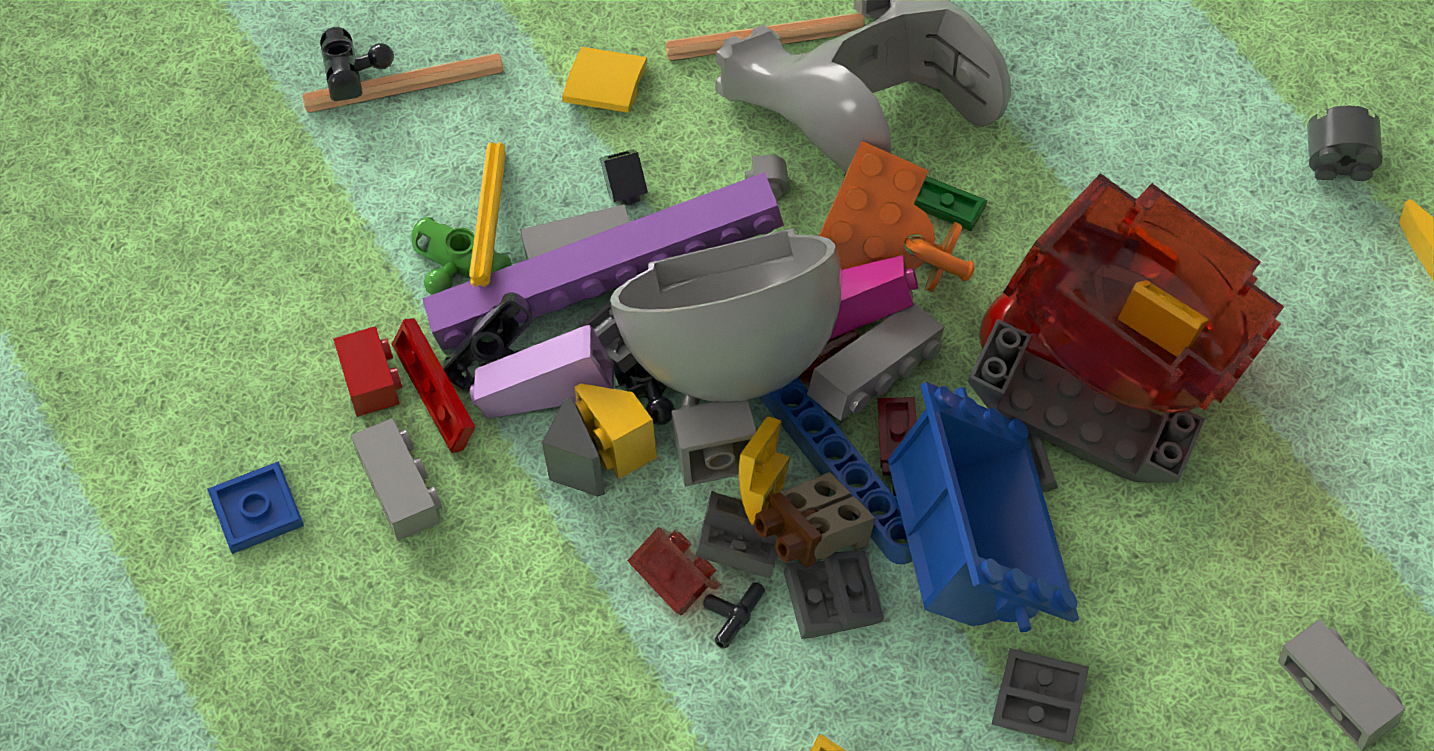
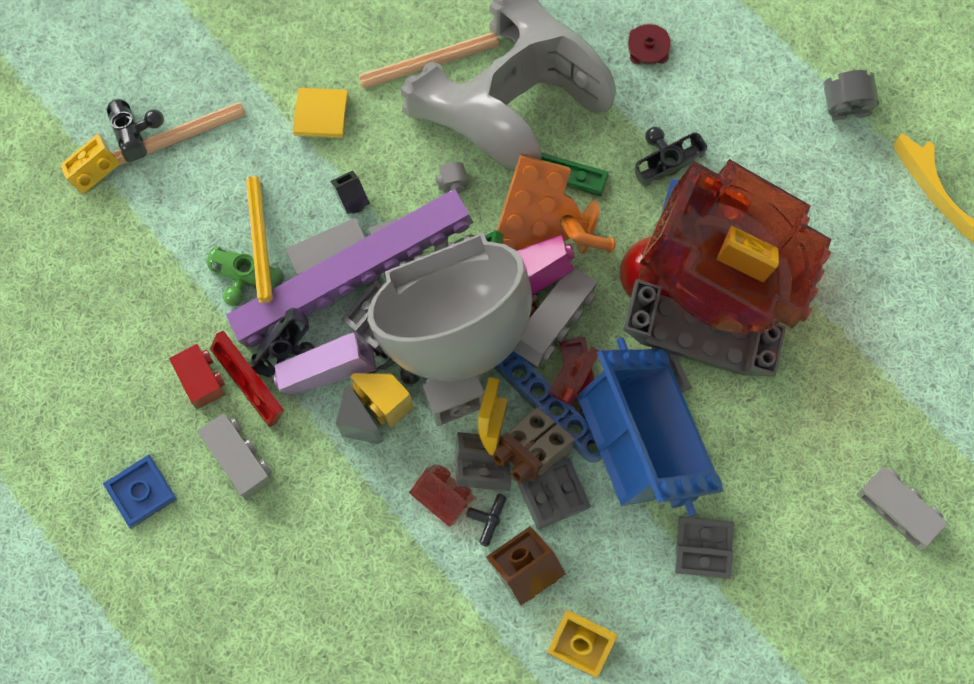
camera: 10 degrees left, 15 degrees up
(284, 100) = (89, 164): none -> yellow bracket
(776, 680) = (526, 565): none -> reddish brown slope
(885, 435) = (573, 376): none -> clear red bracket
(1064, 190) = (658, 166): none -> black piece
(1071, 55) = (649, 44): none -> dark red piece

